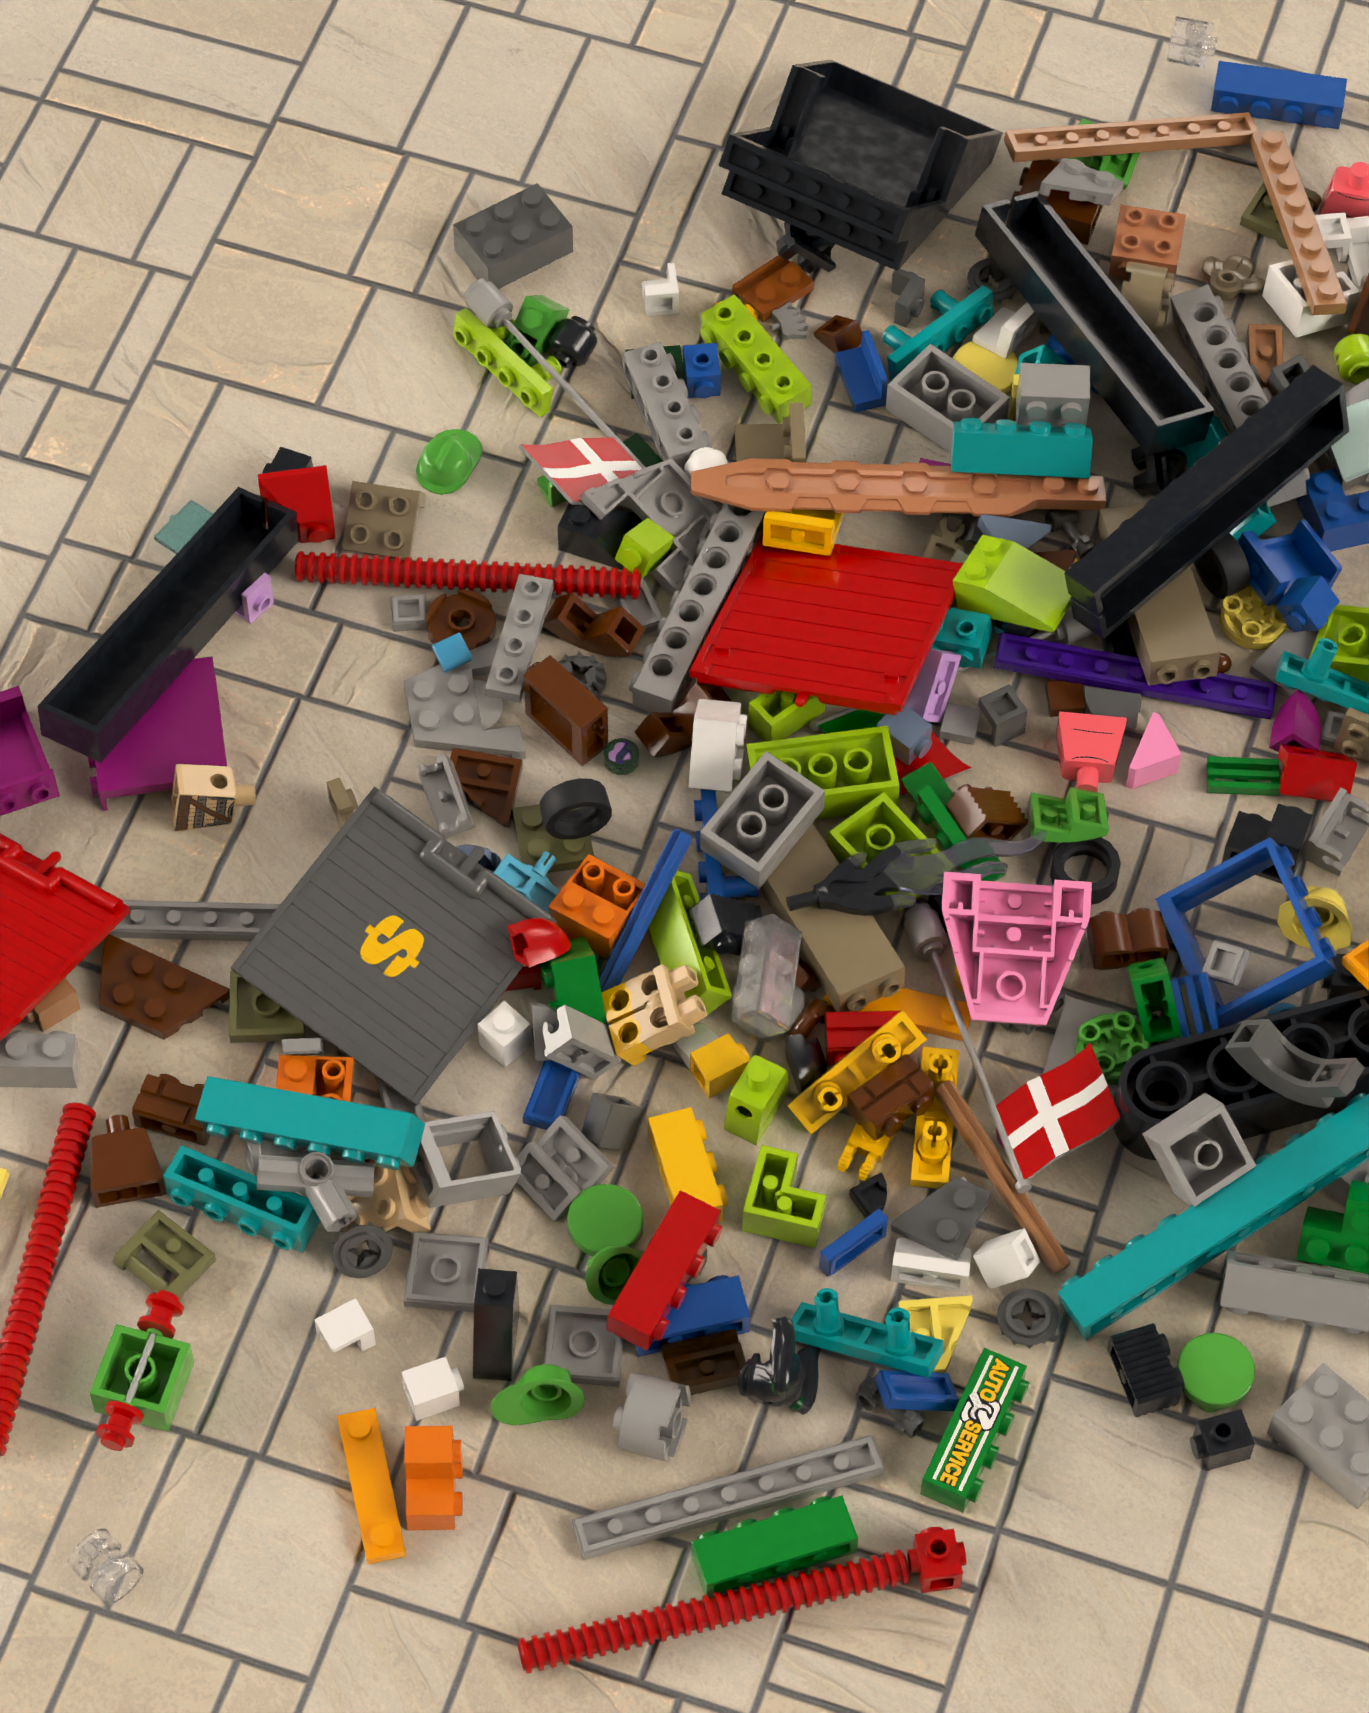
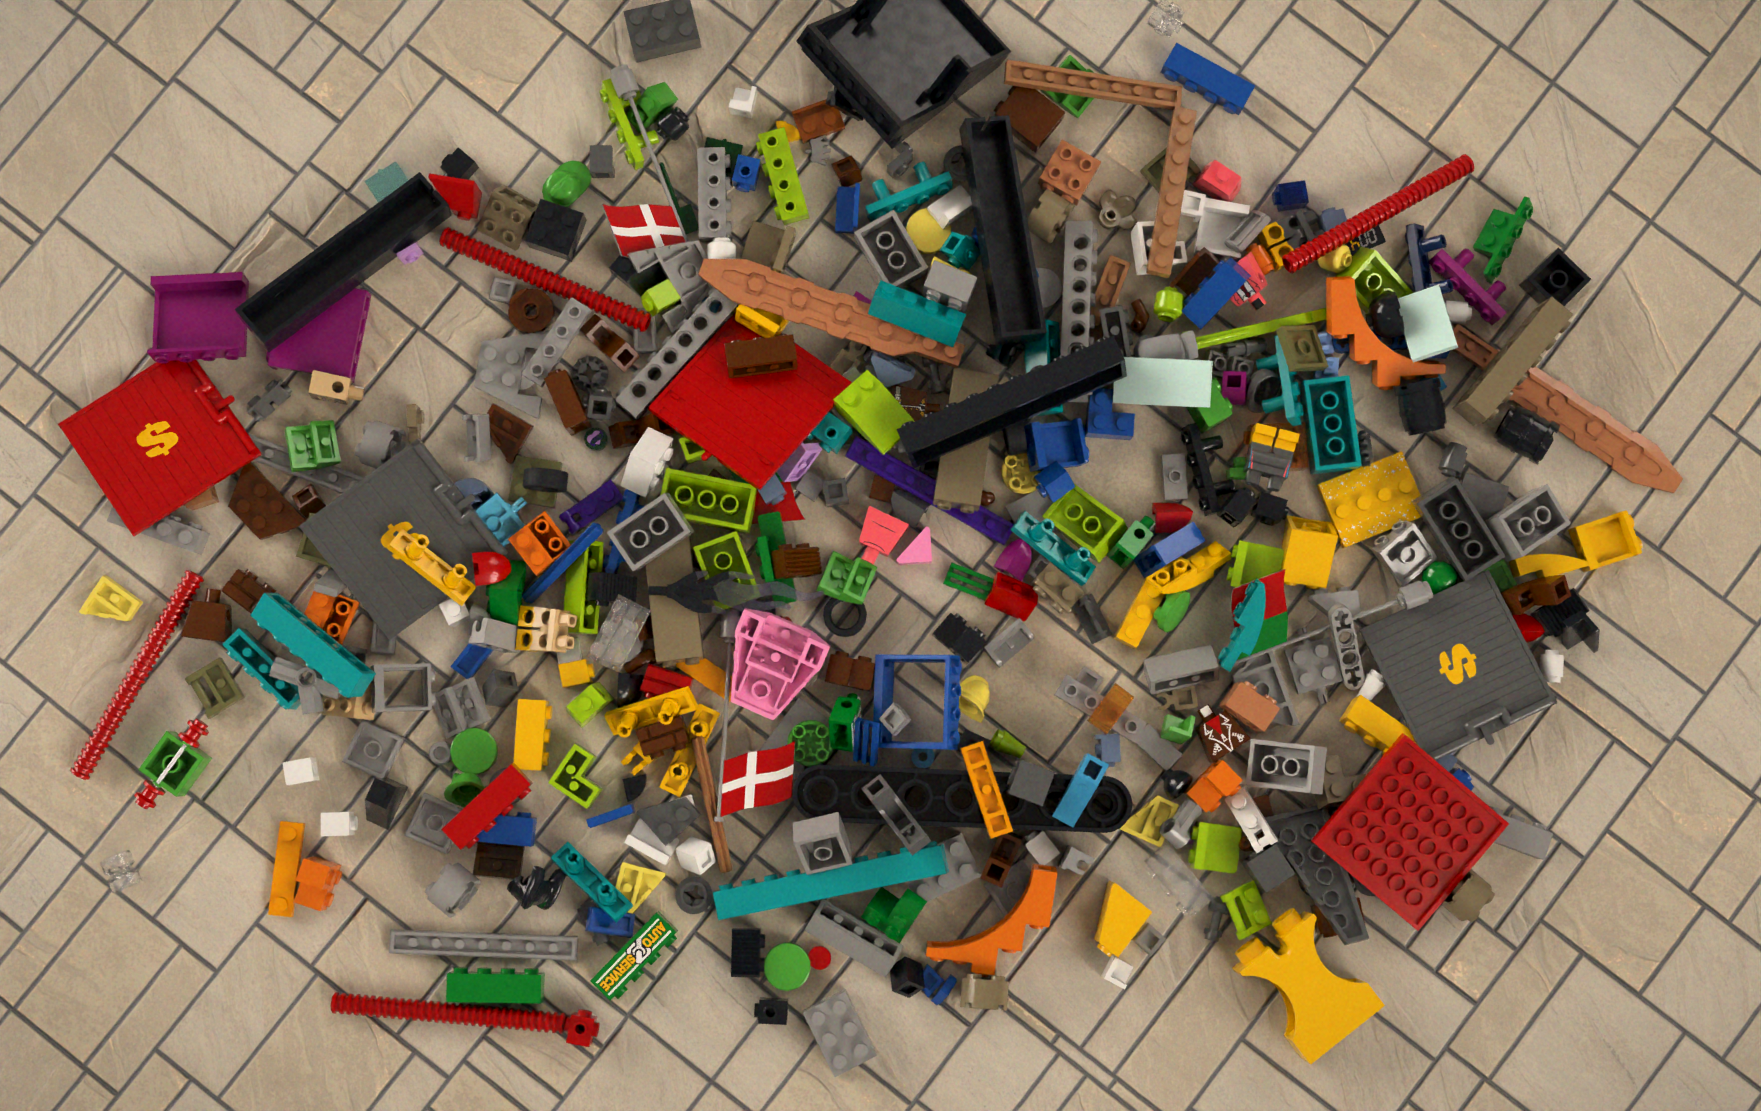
camera: 15 degrees right, 25 degrees up
(119, 833) = (262, 405): none -> dark grey hinge
(201, 884) = (312, 446): none -> bright green slope
(216, 962) = (308, 501): none -> reddish brown slope
(303, 841) = (379, 443): none -> light grey brick
(371, 1260) = (333, 724): dark grey gear -> none
(439, 960) = (430, 566): none -> yellow plate
(452, 652) = (516, 333): dark azure piece -> none
(459, 511) = (556, 230): none -> black brick
(491, 413) = (601, 161): none -> dark grey panel
(539, 1396) = (397, 847): bright green piece -> none
(553, 1243) = (440, 753): none -> light grey tile
(617, 697) = (602, 410): none -> dark grey brick
(651, 839) = (592, 507): none -> dark purple plate
(823, 565) = (761, 355): none -> reddish brown brick
(1082, 183) = (1041, 116): light grey wing -> none
(1261, 1344) = (819, 957): none -> red tile

